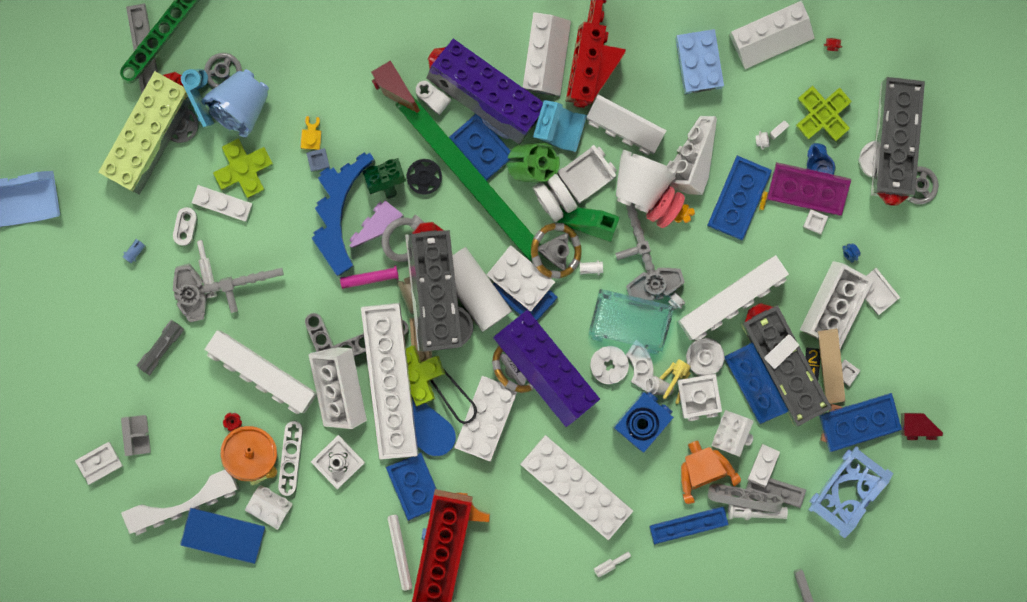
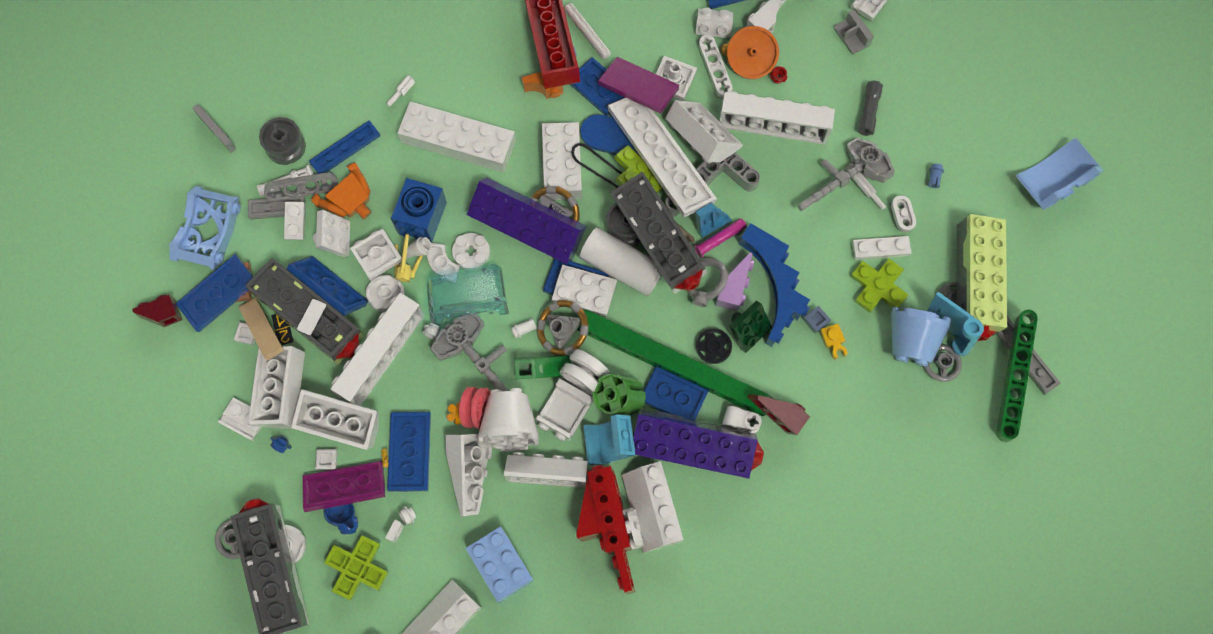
camera: 155 degrees right, 15 degrees down
(373, 296) = (710, 219): none -> dark azure wing
(377, 465) = (638, 85): none -> magenta tile
(572, 40) = (633, 528): none -> white plate
(757, 557) = (282, 141): none -> dark grey wheel
(795, 247) = (336, 420): none -> white slope

